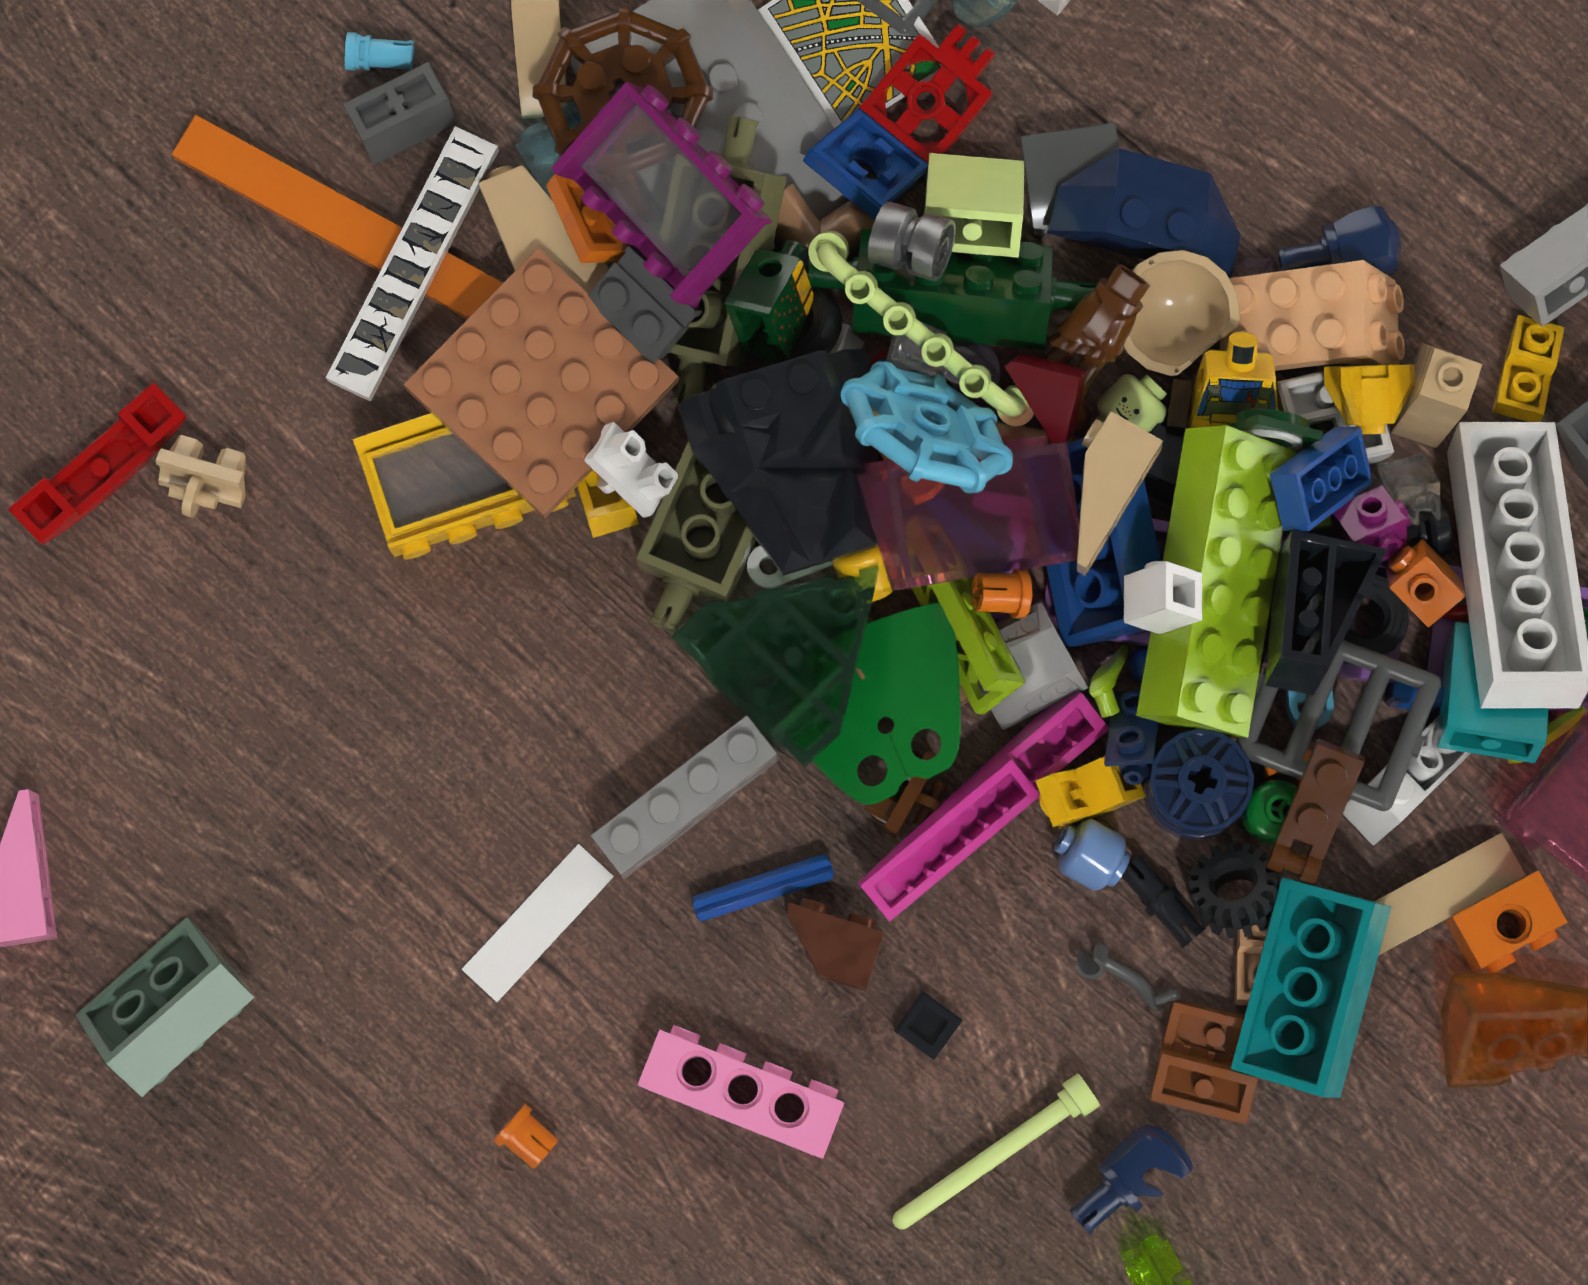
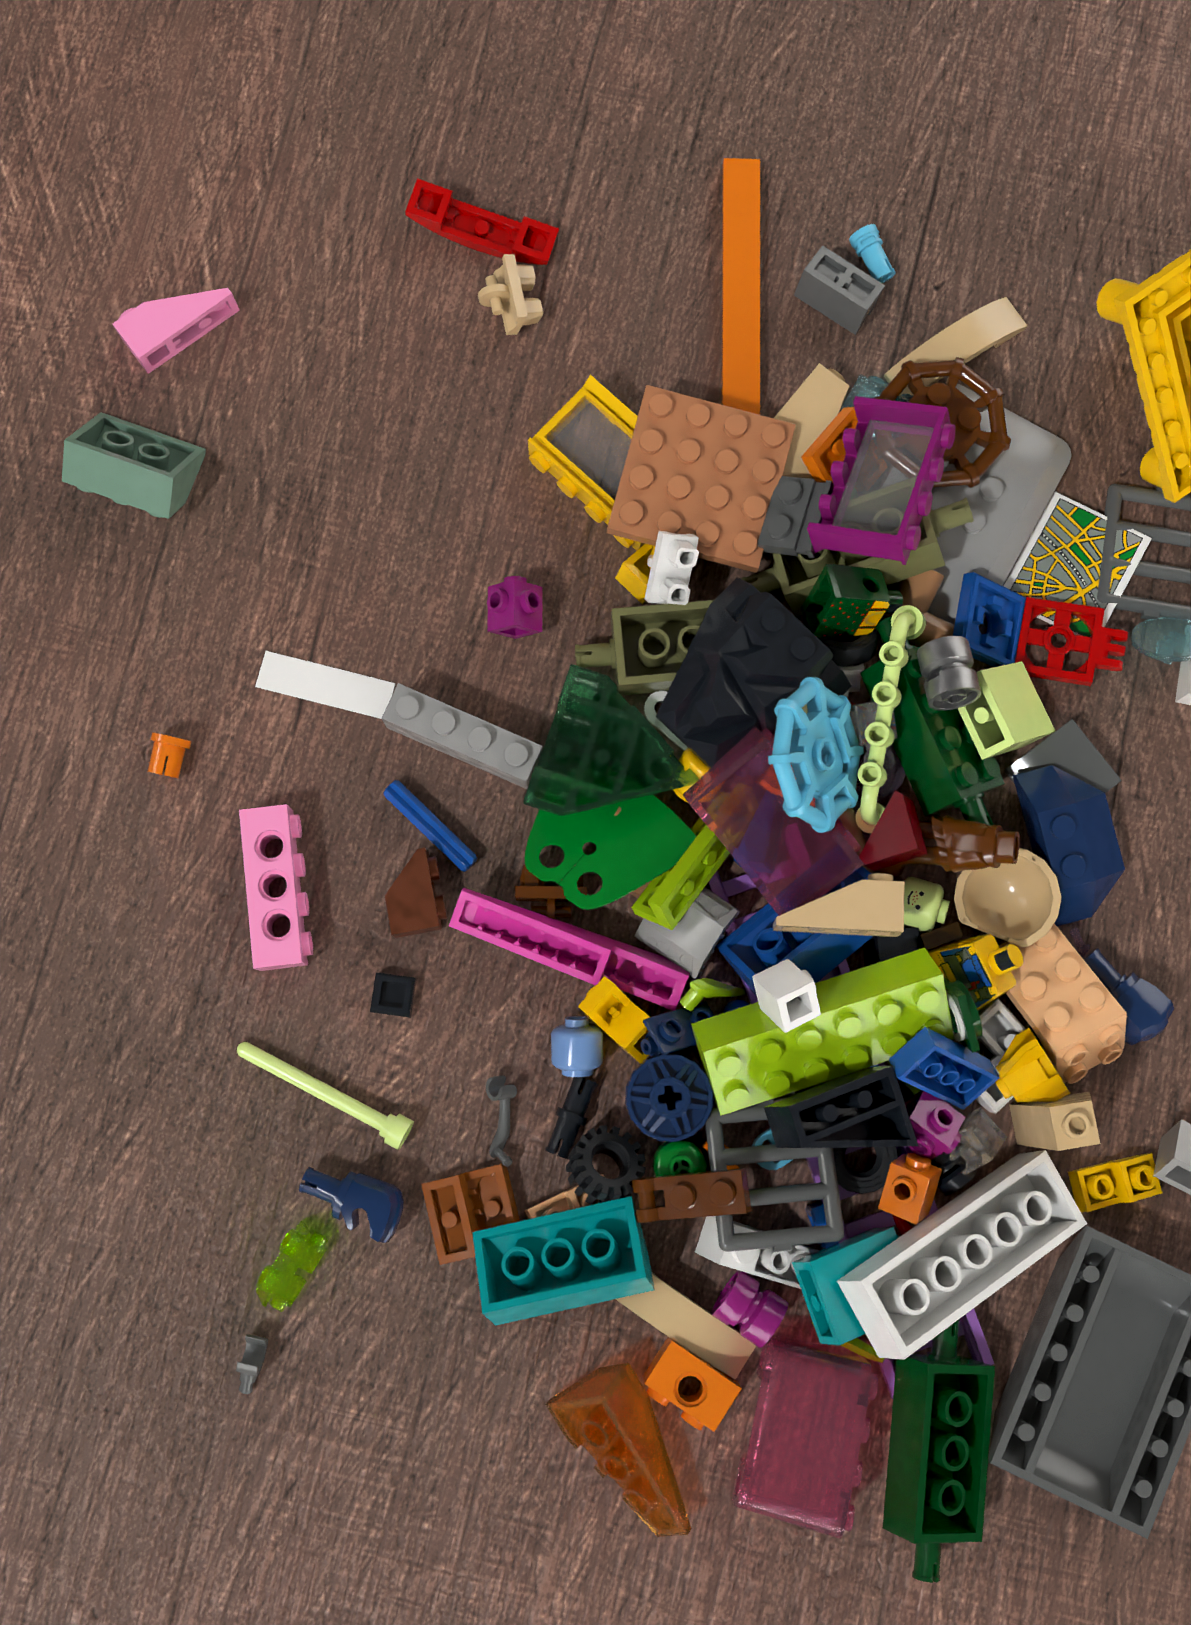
camera: 55 degrees right, 0 degrees up
(412, 264) = (738, 352): tile -> none
(570, 664) = (514, 608): none -> magenta brick
(1003, 593) = (728, 878): orange bush -> none
(1465, 816) = (753, 1310): none -> magenta wheel

